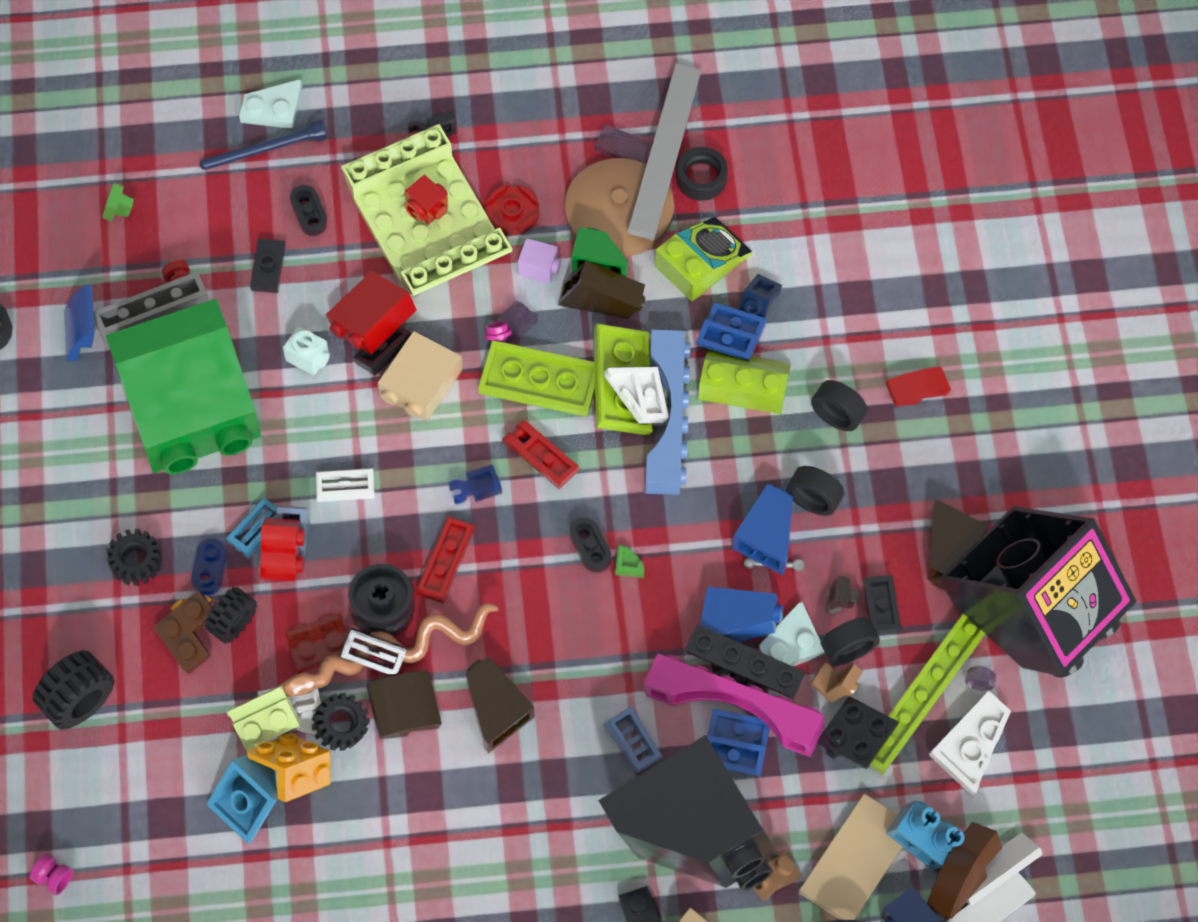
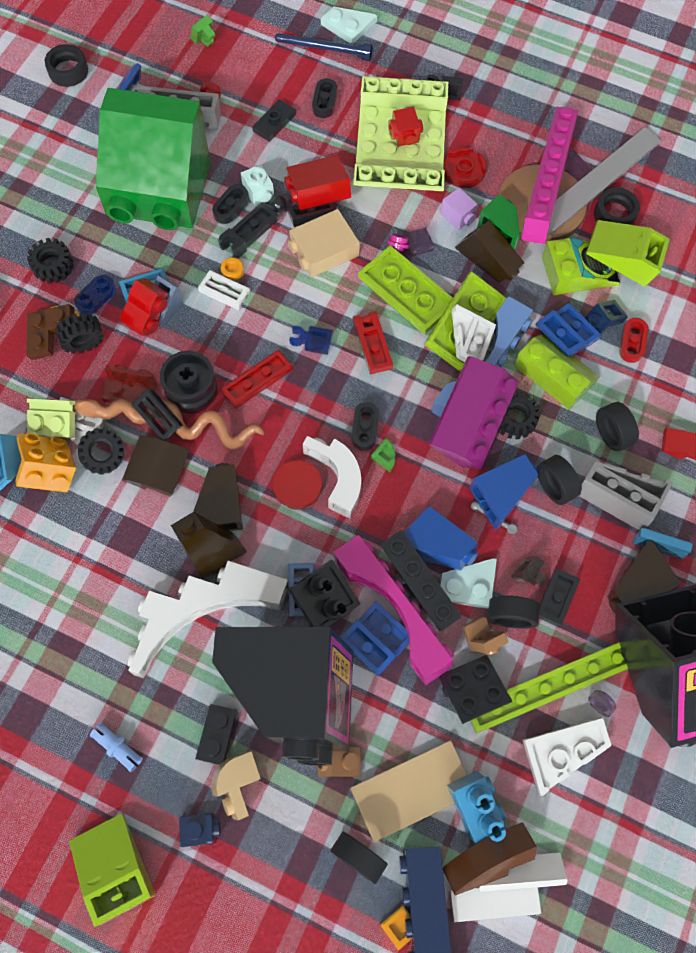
camera: 30 degrees right, 5 degrees up
(288, 389) = (228, 205): none -> black plate
(329, 398) = (252, 226): none -> black plate
(338, 457) = (232, 268): none -> light orange tile
(516, 749) = (207, 543): none -> dark brown slope
(560, 642) = (297, 484): none -> red tile
(569, 774) = (167, 615): none -> white arch
(600, 599) = (345, 466): none -> white arch
(615, 174) = (549, 176): none -> dark pink brick
(661, 728) = (324, 596): none -> black plate
(694, 470) = (473, 413): none -> magenta slope
(733, 434) = (532, 417): none -> black tyre
(742, 213) = (629, 249): none -> lime slope
(804, 308) = (633, 342): none -> red plate
(885, 470) = (624, 494): none -> light grey wedge
(951, 495) = (664, 543): none -> dark azure tile

